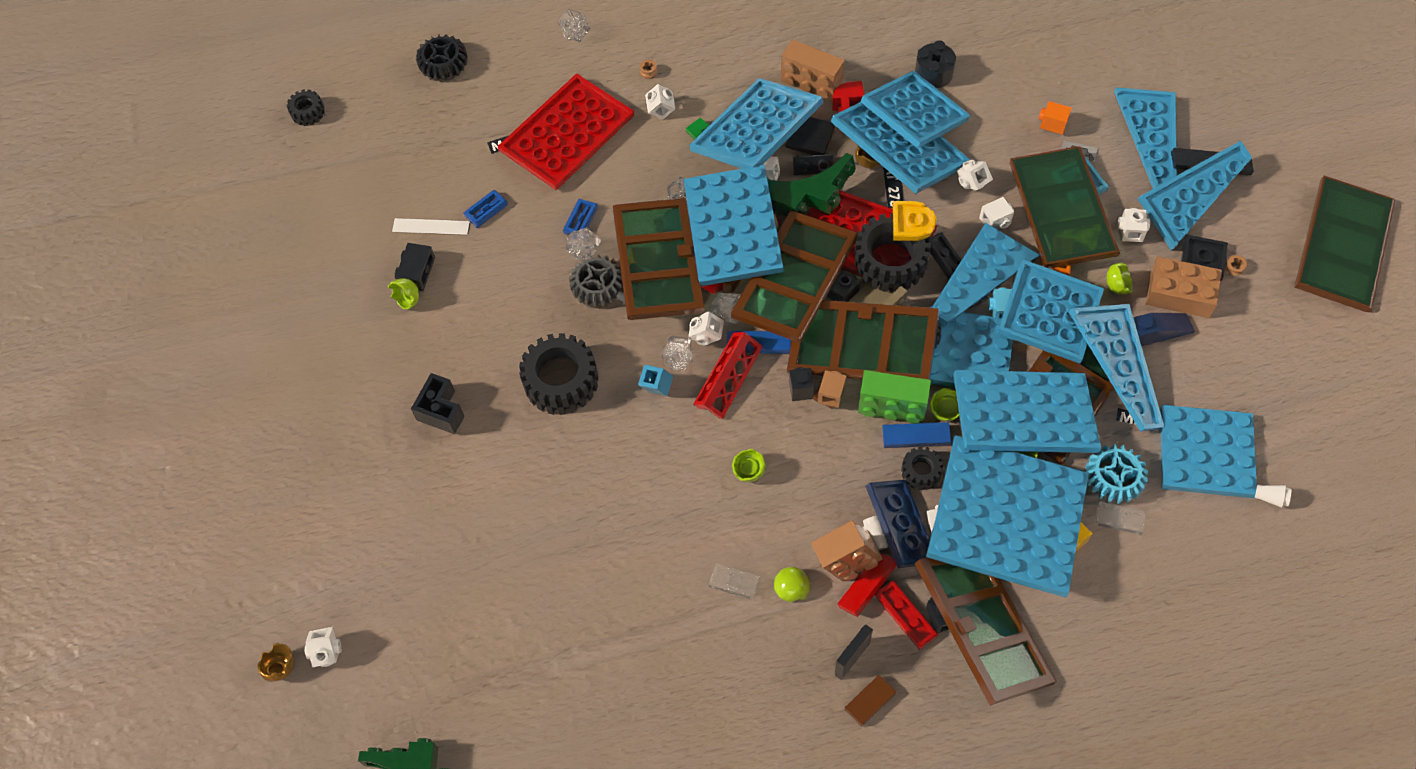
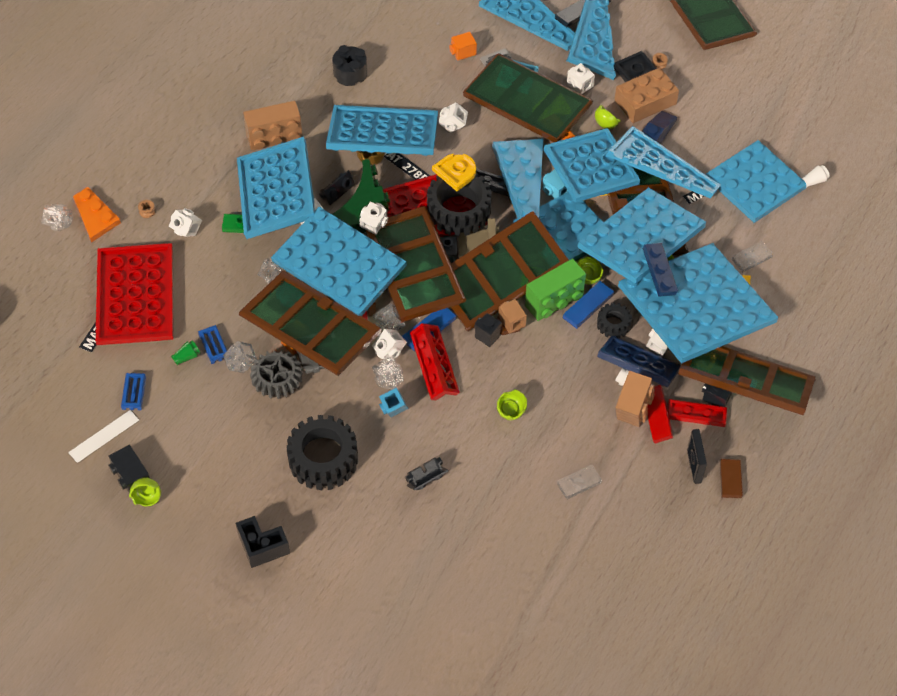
camera: 50 degrees left, 5 degrees down
(552, 208) = (186, 353): none -> green cone
(607, 45) = (95, 214): none -> orange wing
(627, 465) = (418, 479): none -> black hinge
(792, 584) = (614, 453): lime hair -> none
(798, 208) = (373, 217): none -> white brick
(811, 137) = (321, 170): black tile -> none
(847, 95) = (315, 128): red brick -> none
(915, 109) = (369, 102): dark azure plate -> none
(997, 213) = (492, 132): white brick -> none
(998, 455) = (660, 269): none -> dark blue plate
(1122, 463) = (724, 229): medium azure gear -> none

